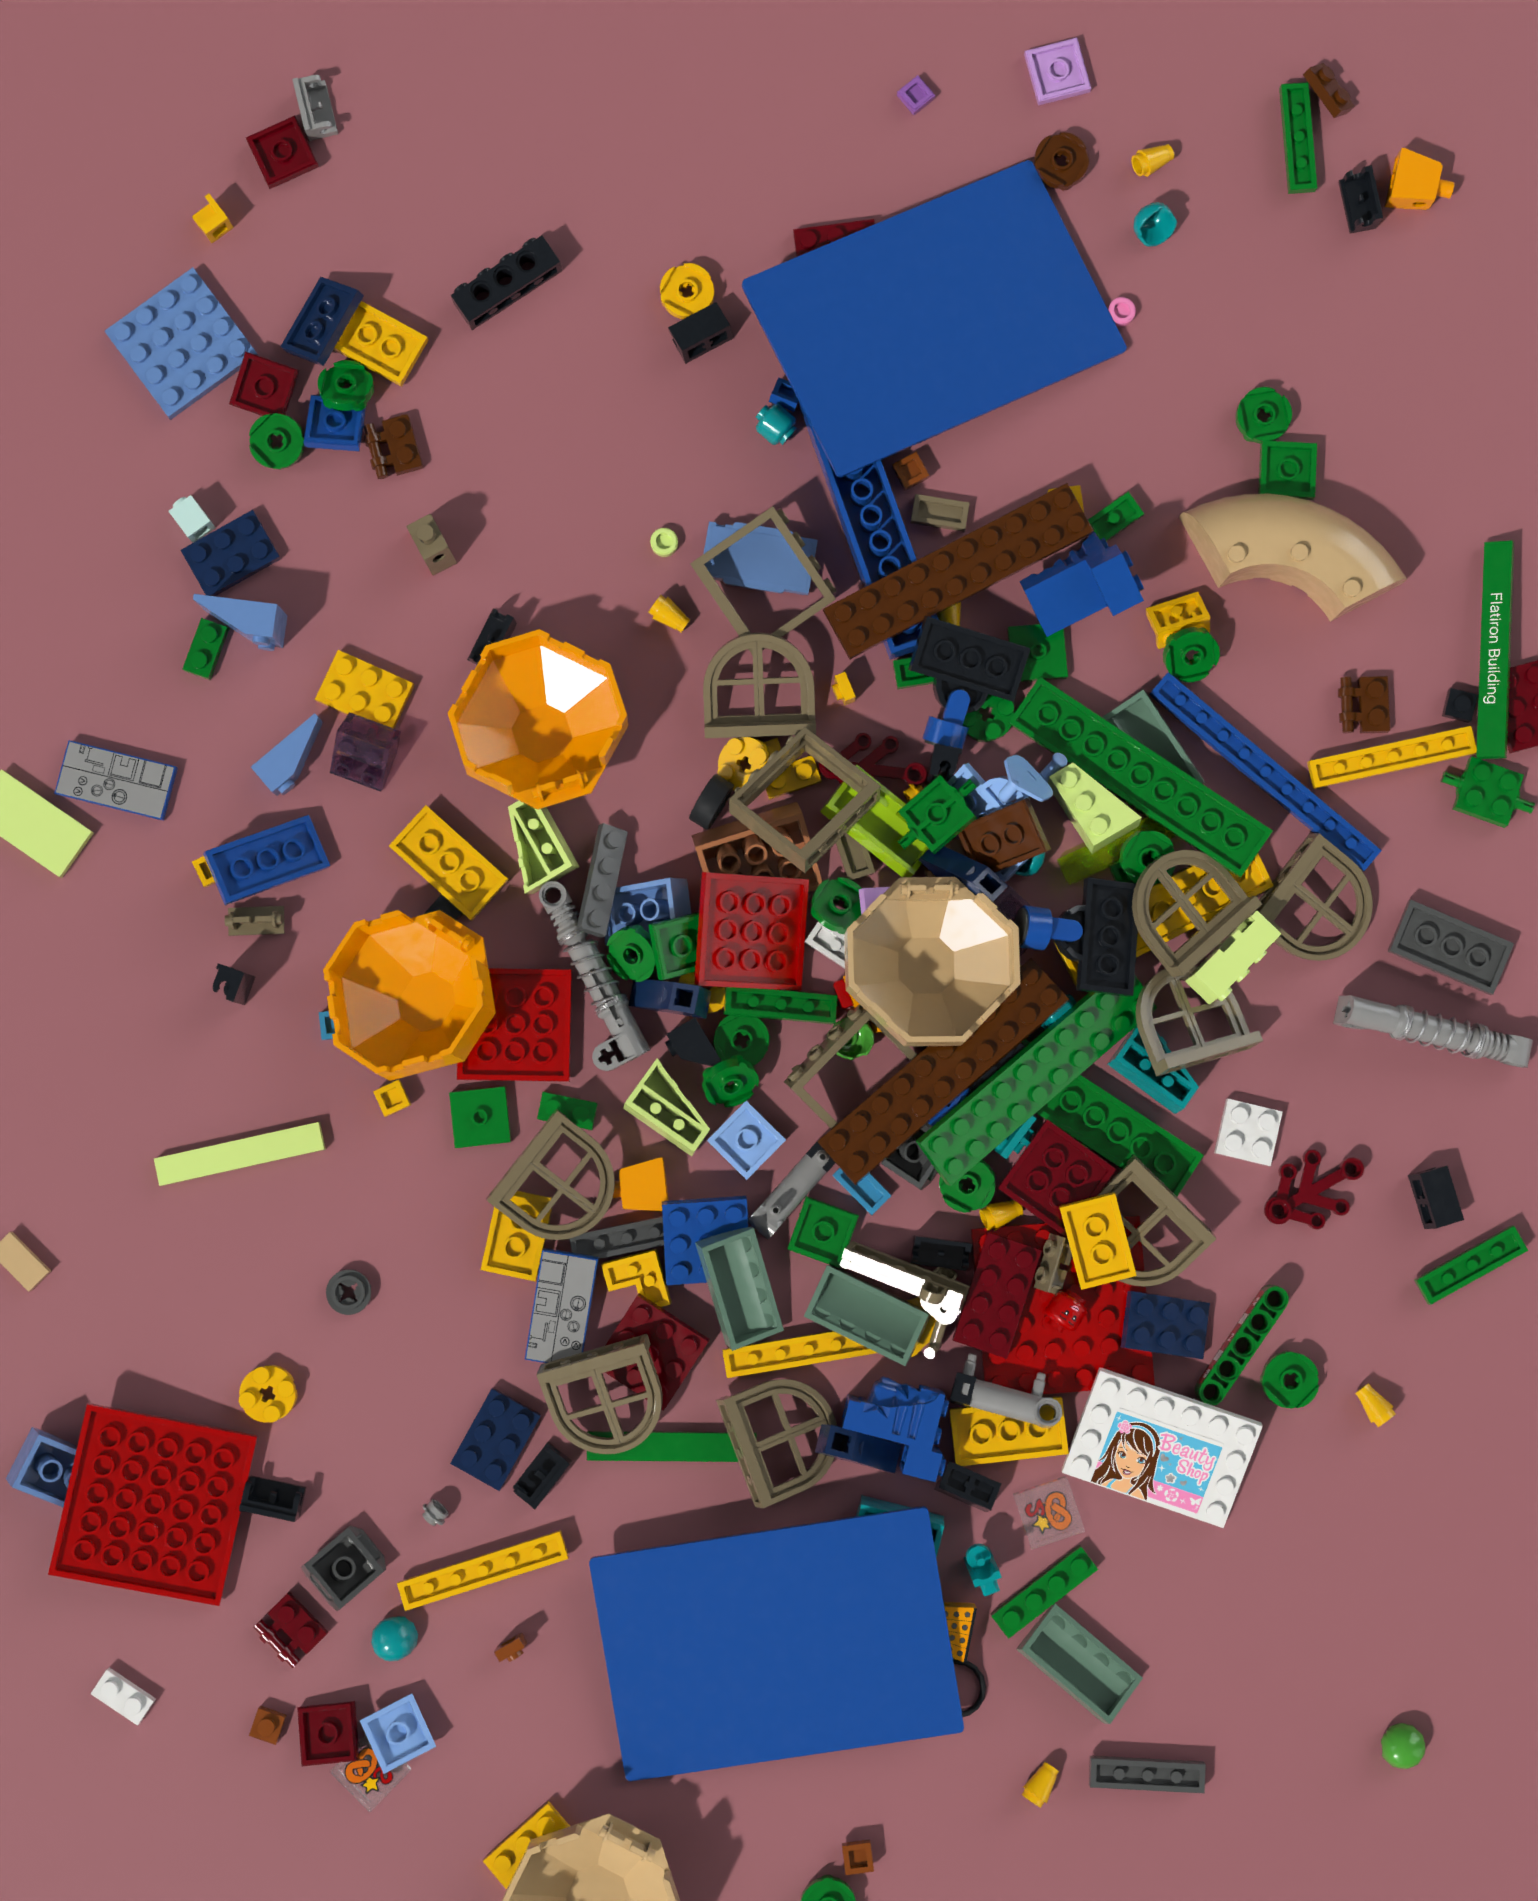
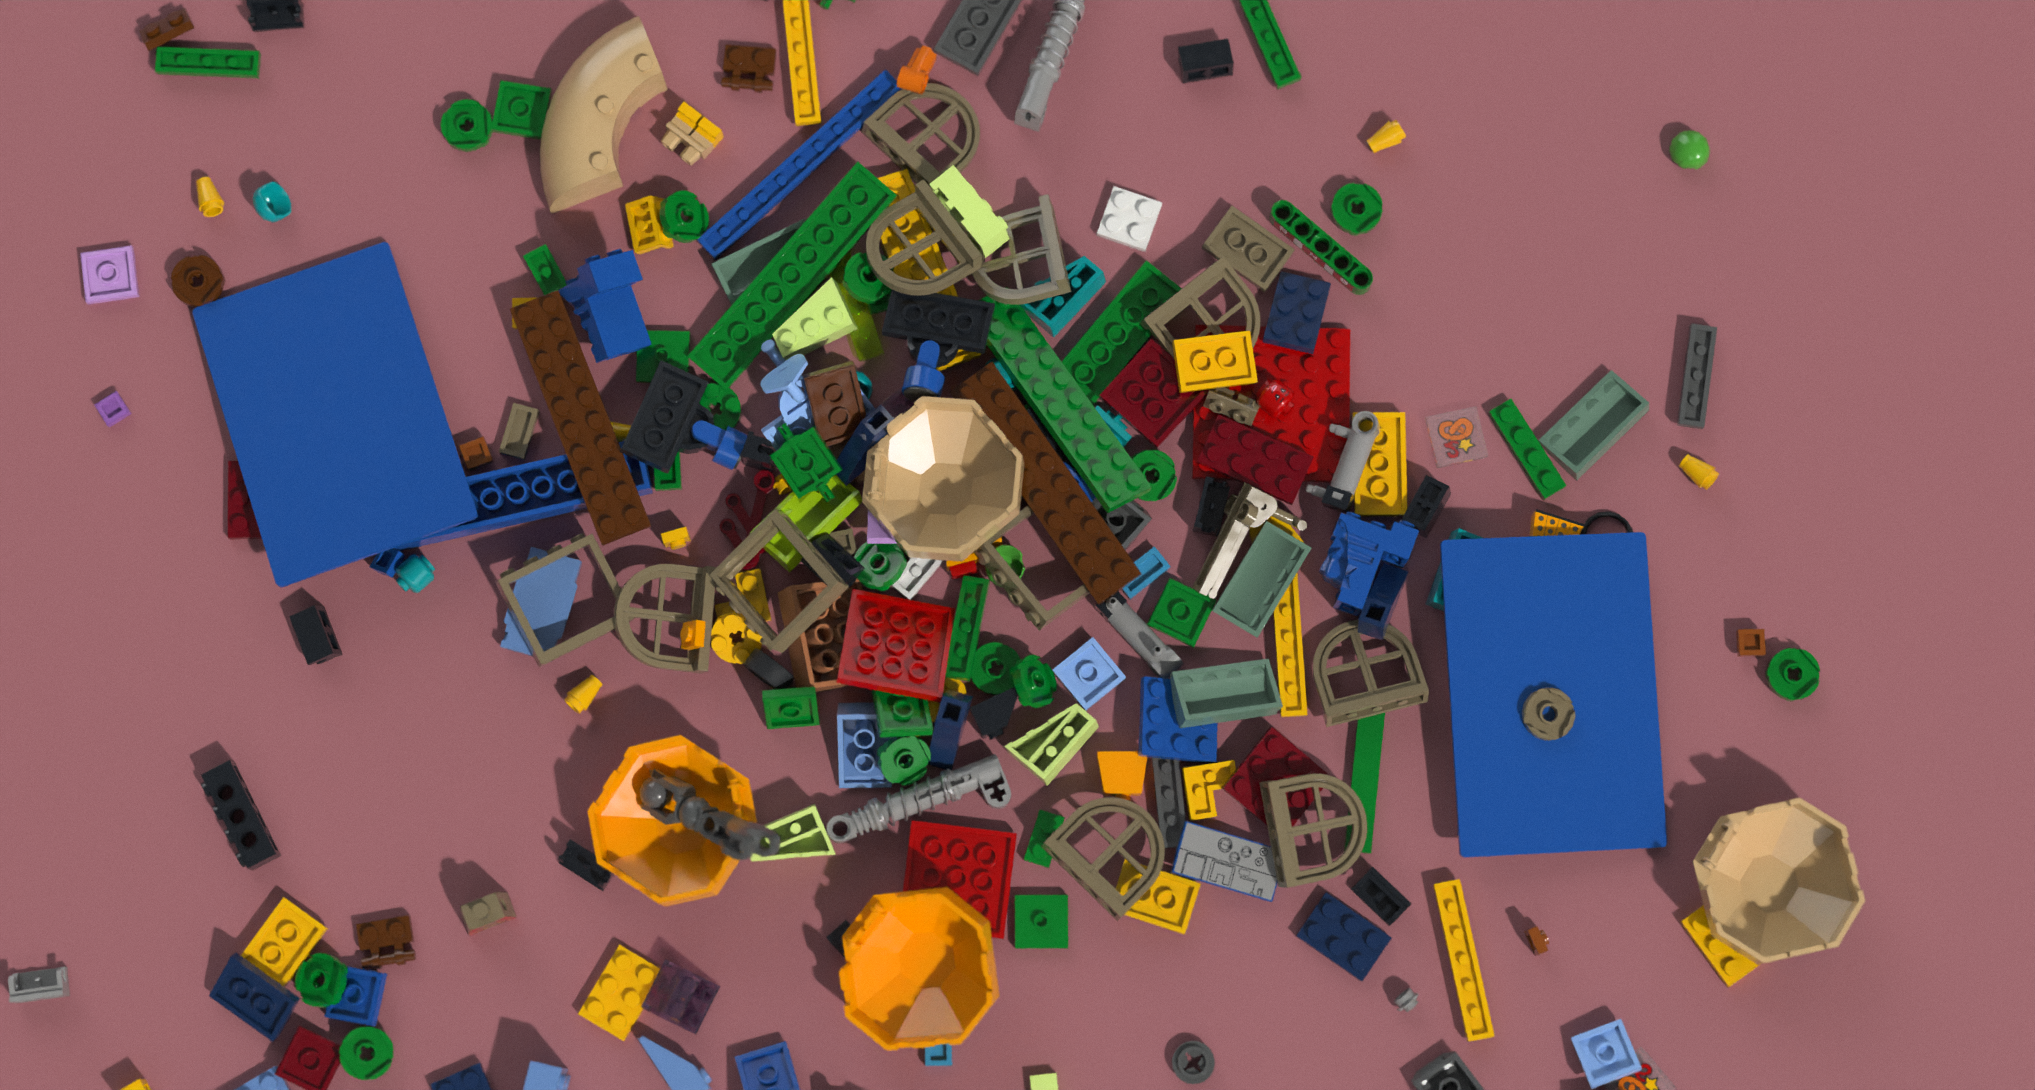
camera: 85 degrees left, 5 degrees down
(282, 152) = (78, 1022): dark red plate -> none
(392, 1098) = (1014, 1002): yellow plate -> none
(394, 1638) = (1519, 1050): teal hair -> none
(448, 862) = (796, 927): yellow plate -> none
(534, 764) = (734, 836): none -> dark grey piece
(602, 880) = (831, 781): dark grey plate -> none
(664, 542) = (513, 692): yellowish green tile -> none
(674, 829) = (790, 707): none -> green plate
(679, 278) = (258, 647): yellow plate -> none
(740, 717) = (692, 634): none -> light orange plate
(752, 1624) = (1534, 720): none -> dark tan tile
(837, 860) = (838, 558): none -> black hinge
(982, 1568) = (1501, 499): teal hips -> none
(998, 1214) = (1181, 449): yellow cone -> none
(1122, 311) = (349, 242): bright pink tile -> none
(1161, 1447) = (1406, 328): plate -> none
(1230, 1265) = (1248, 248): none -> dark tan plate
(1286, 653) = (694, 132): none -> tan hips
(1309, 1192) = (1188, 171): dark red plant -> none
(1377, 882) = (916, 73): none -> orange piece

